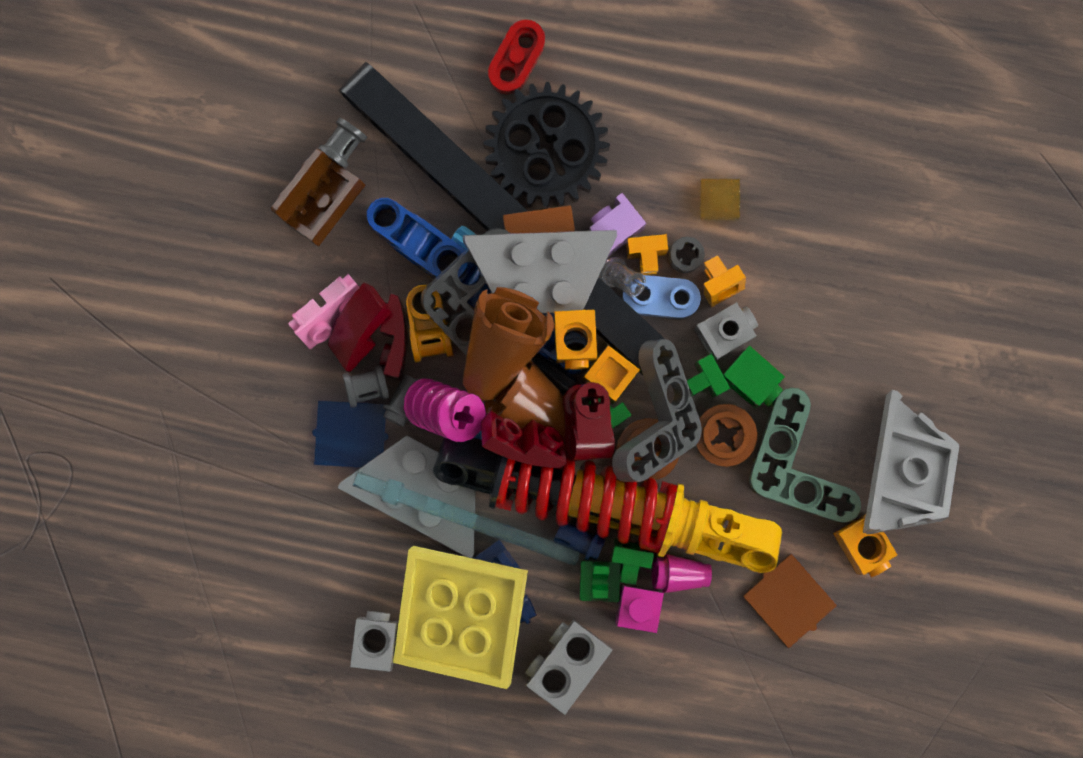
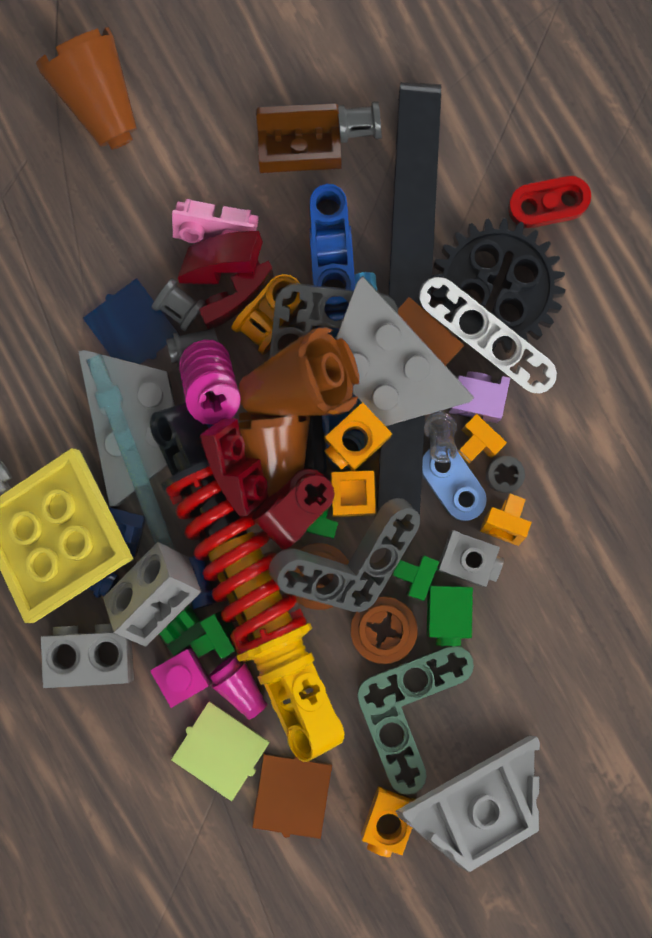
camera: 55 degrees right, 0 degrees up
(152, 314) = (92, 86): none -> dark orange cone
(563, 579) = (151, 594): none -> light grey brick
(578, 183) = (489, 332): none -> white beam
(714, 625) = (220, 751): none -> yellowish green piece
(719, 199) = (574, 463): clear yellow plate -> none

